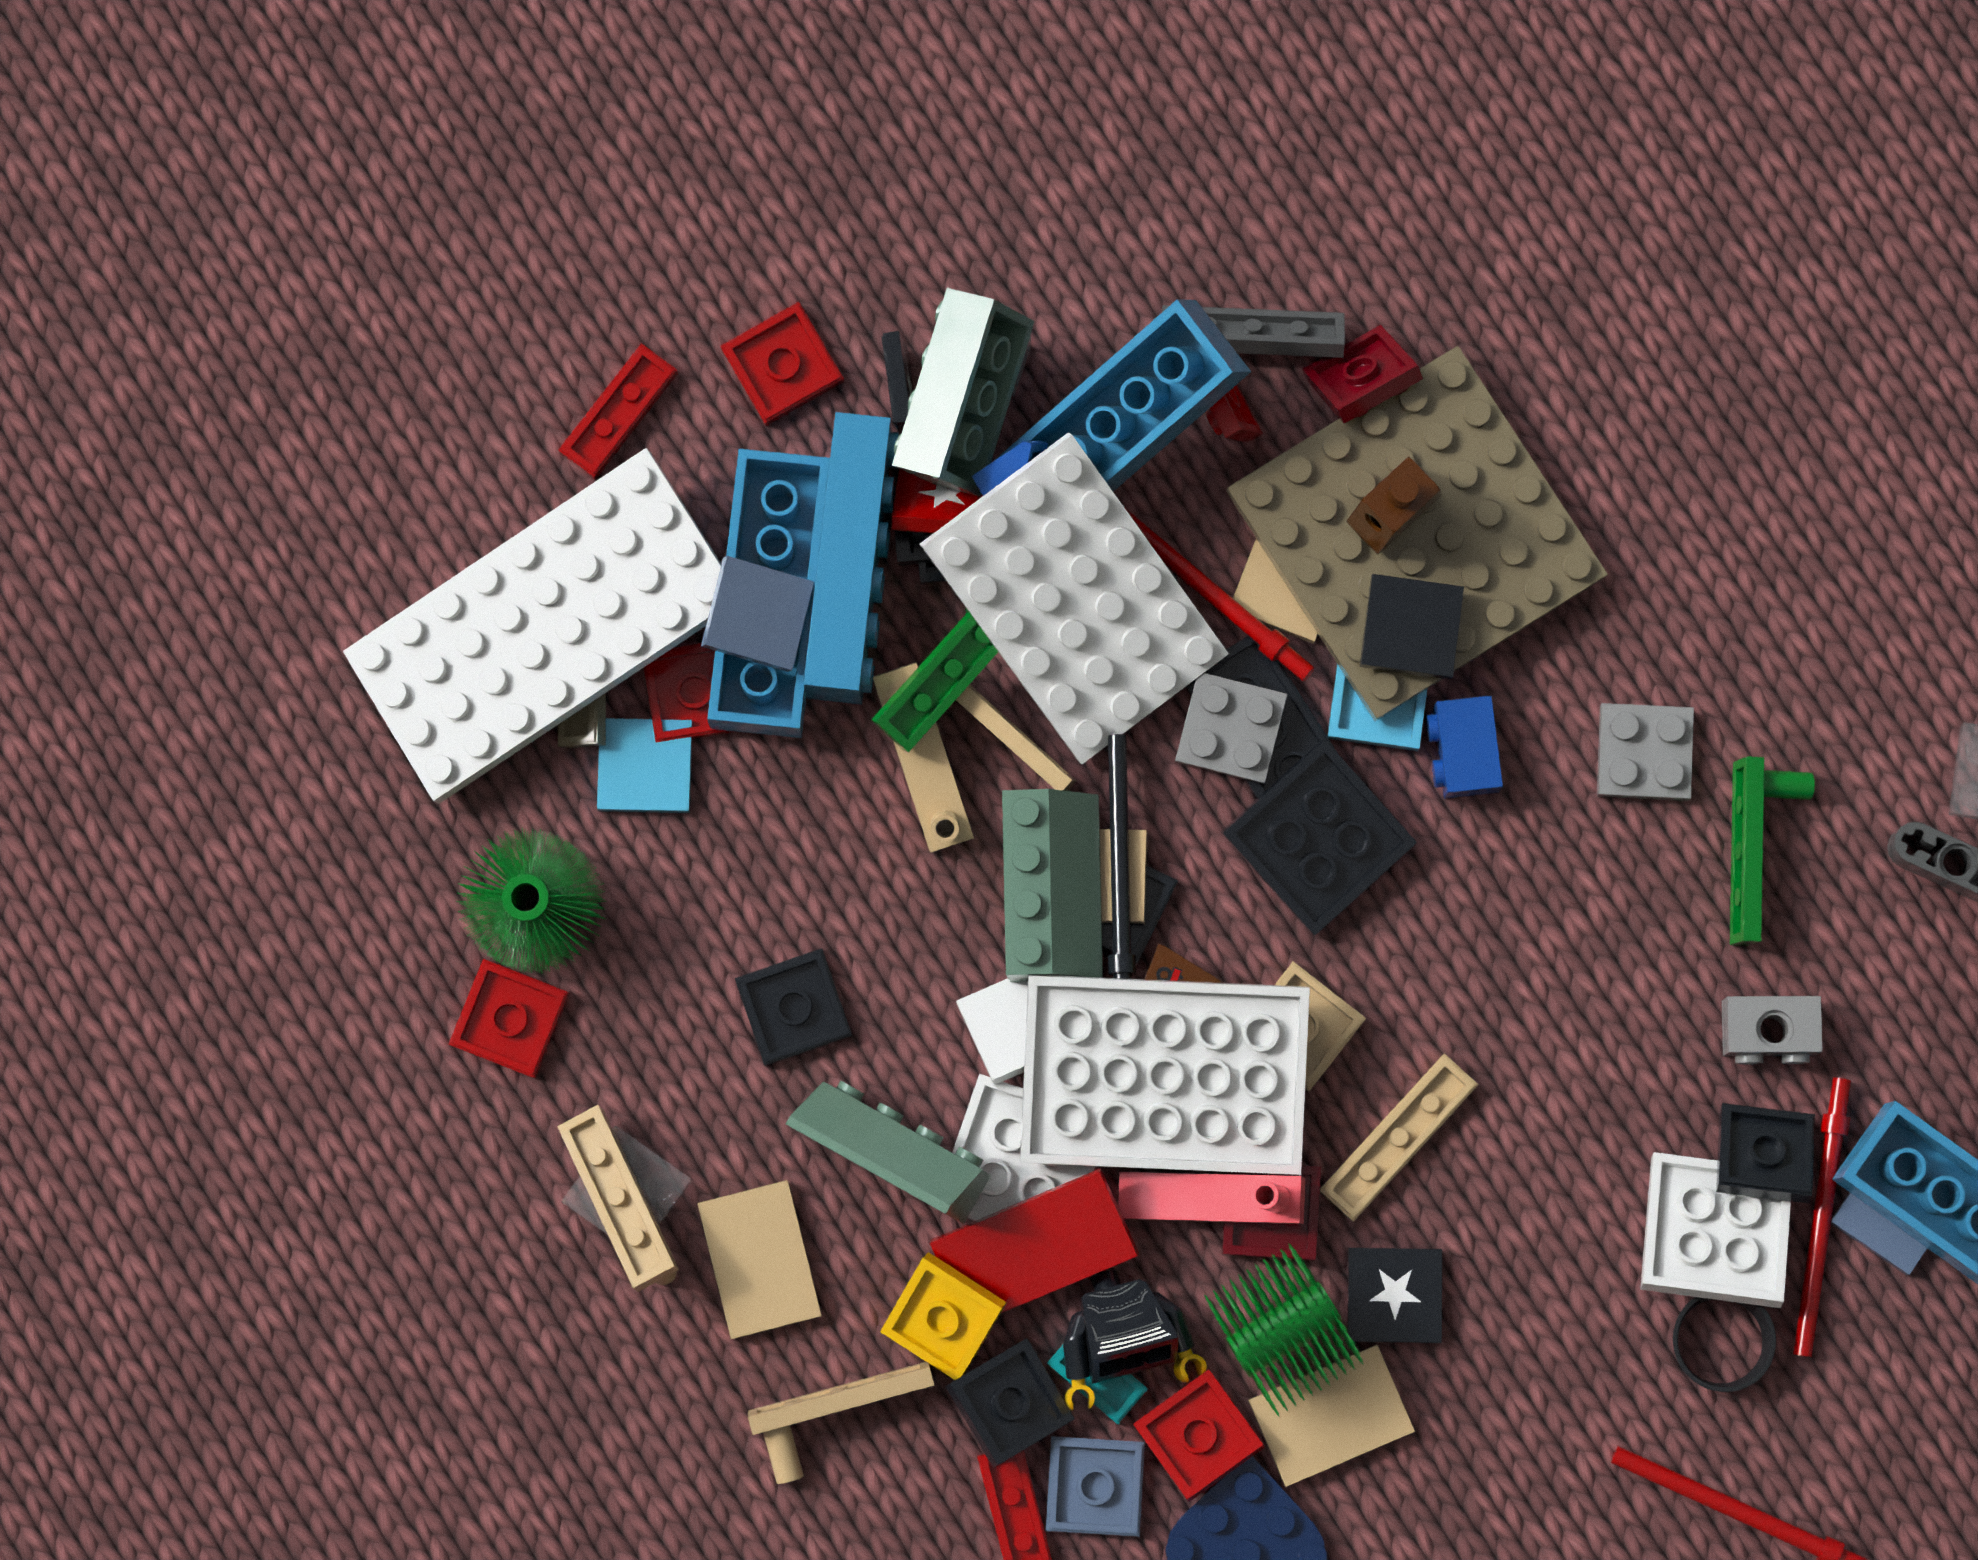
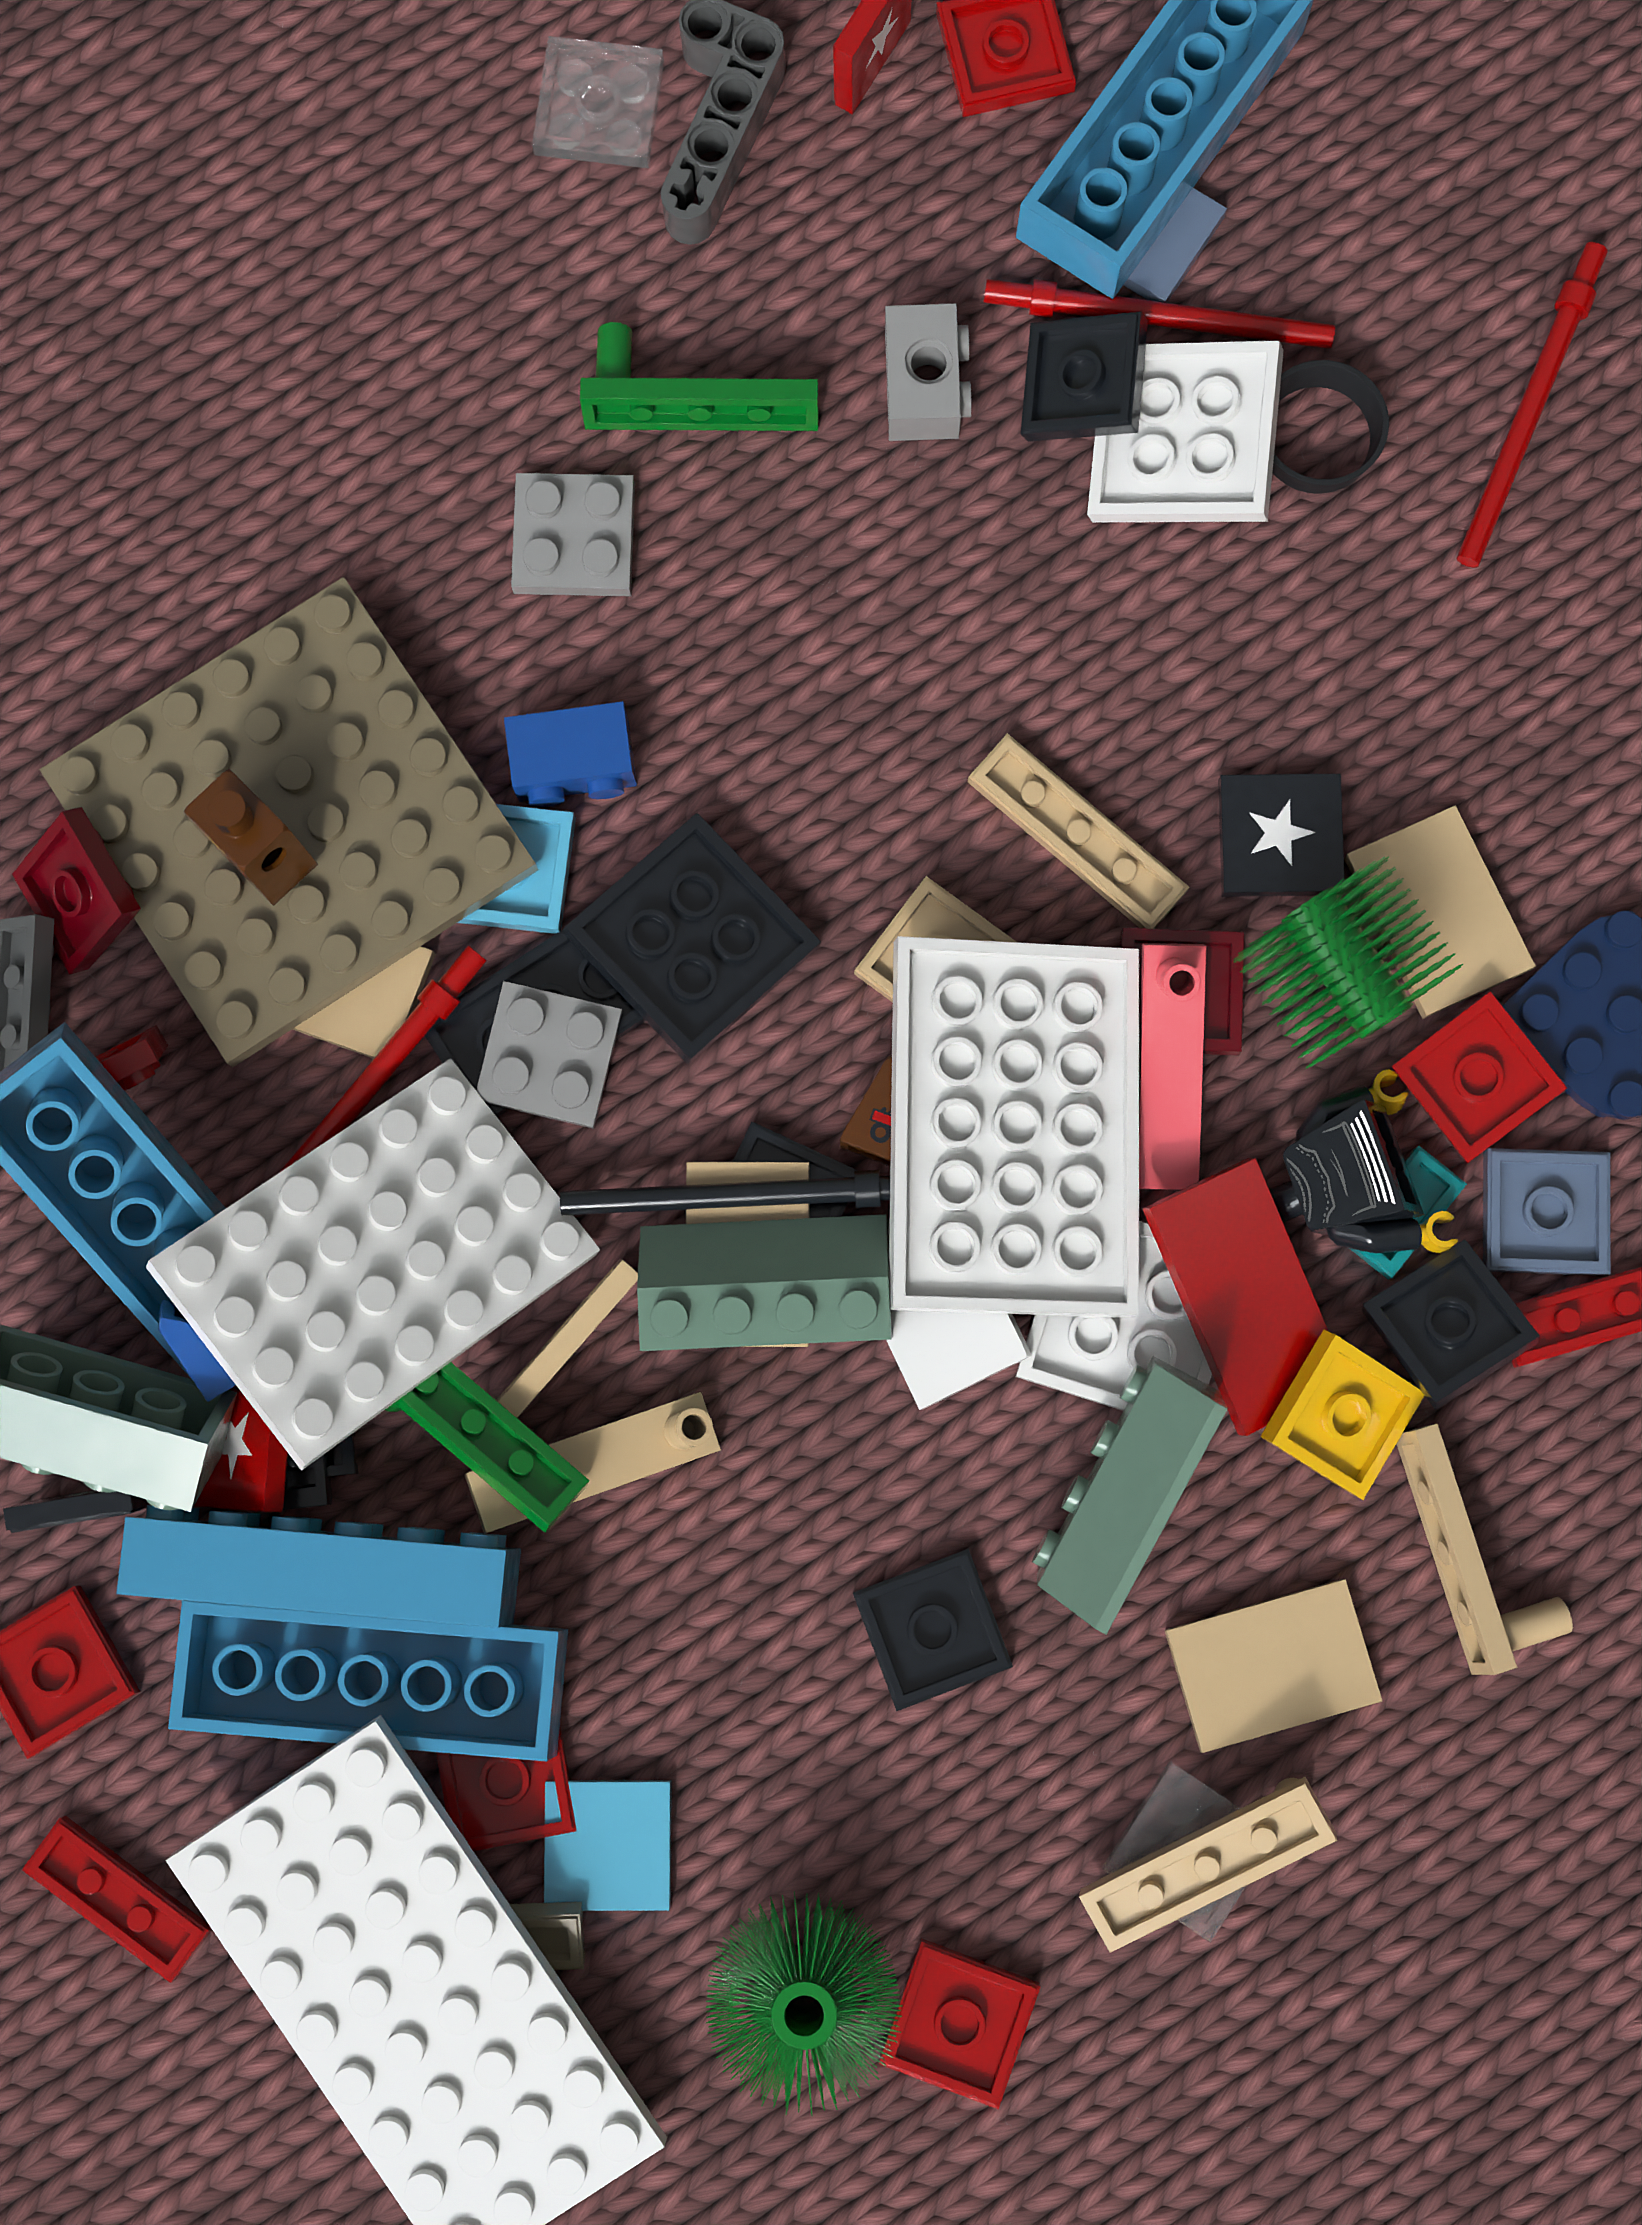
camera: 90 degrees left, 0 degrees up
(757, 613) = (399, 1695): sand blue tile -> none
(1411, 626) = (413, 816): black tile -> none

